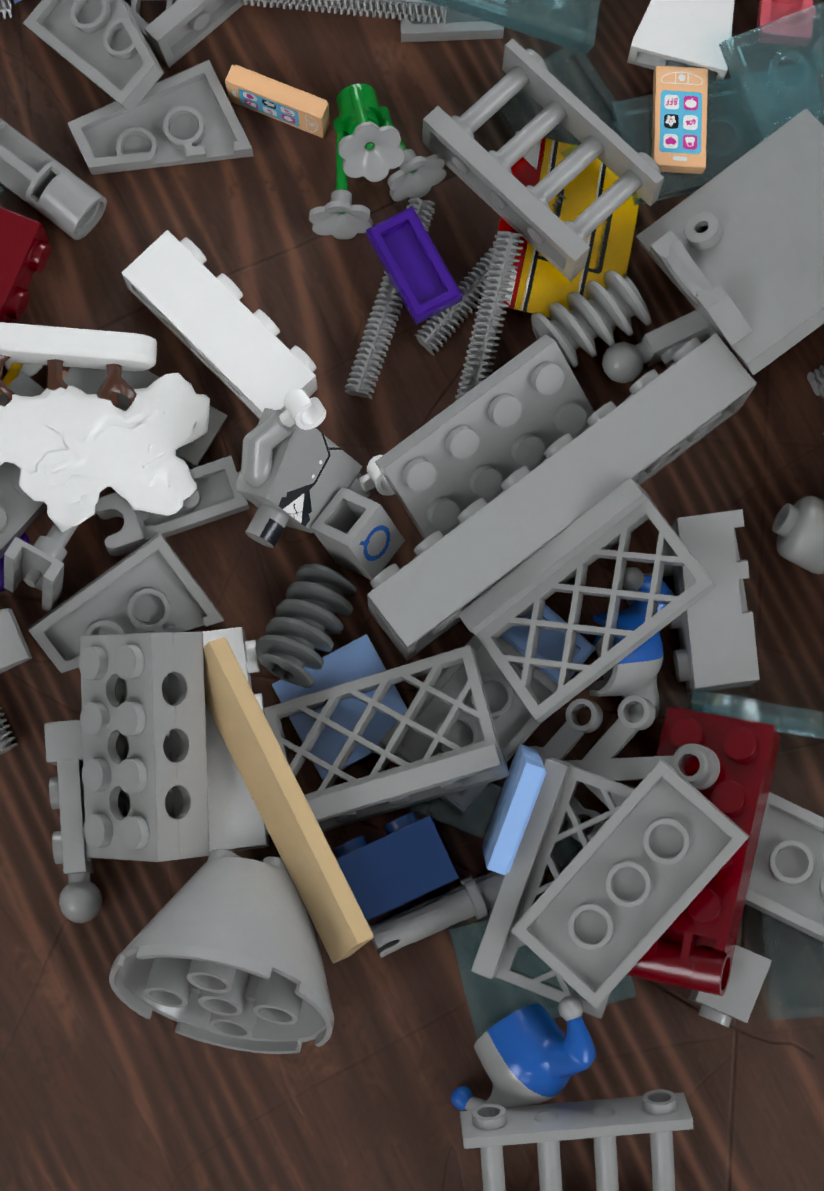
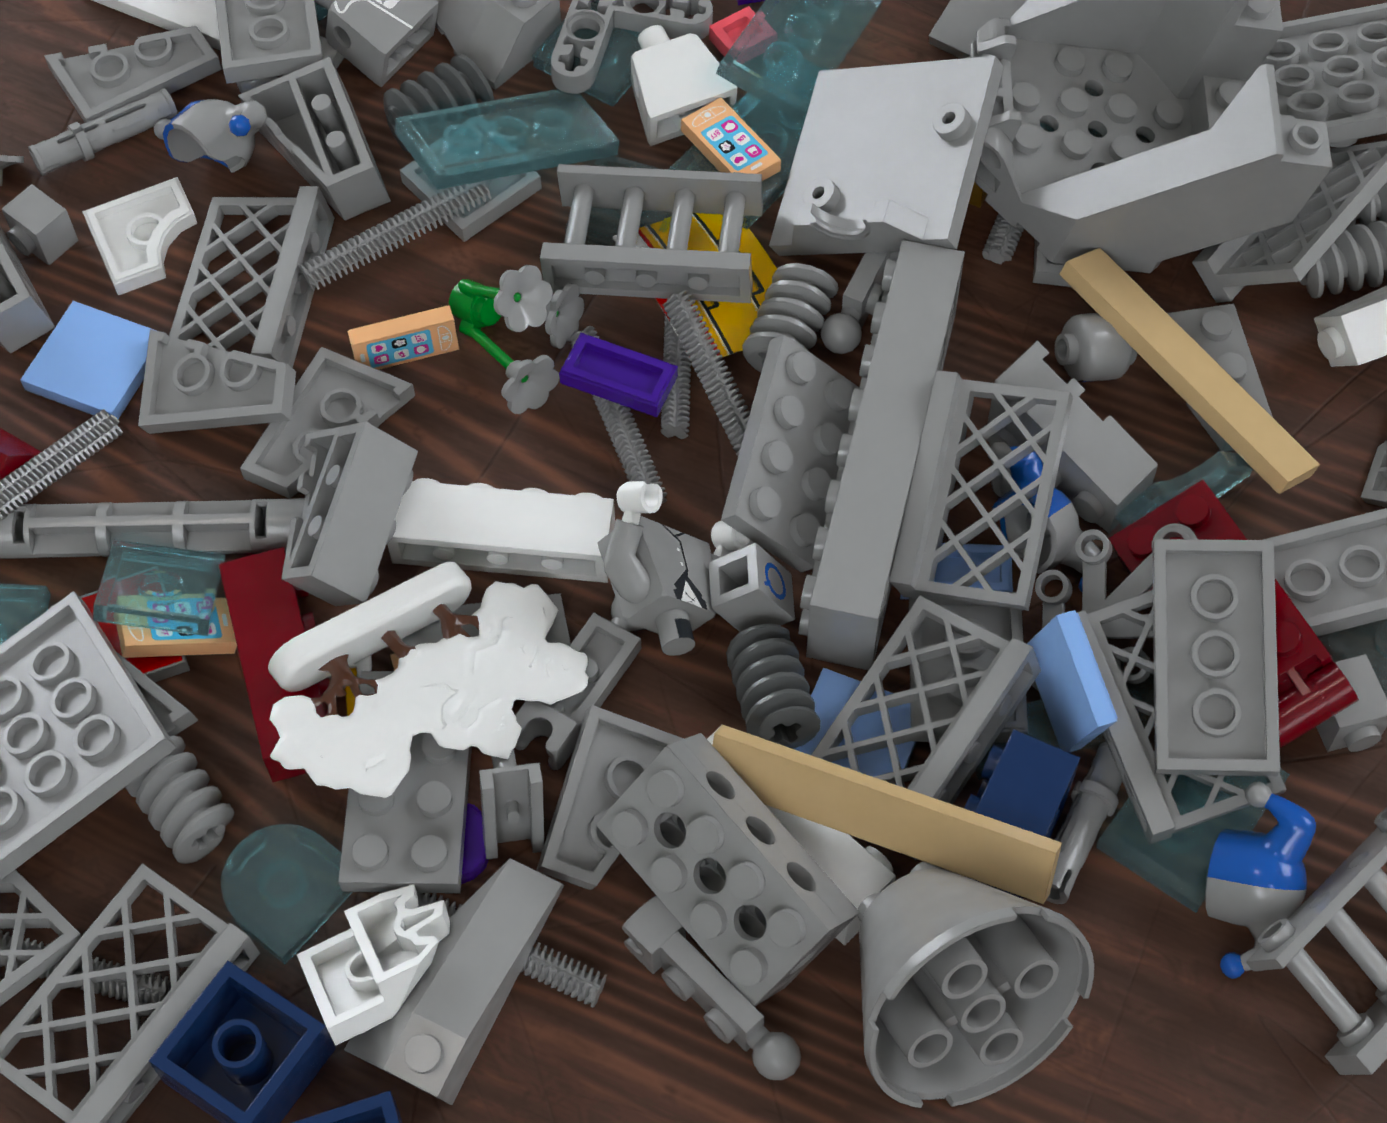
camera: 35 degrees left, 20 degrees down
(100, 236) = (347, 511): none -> light grey wedge

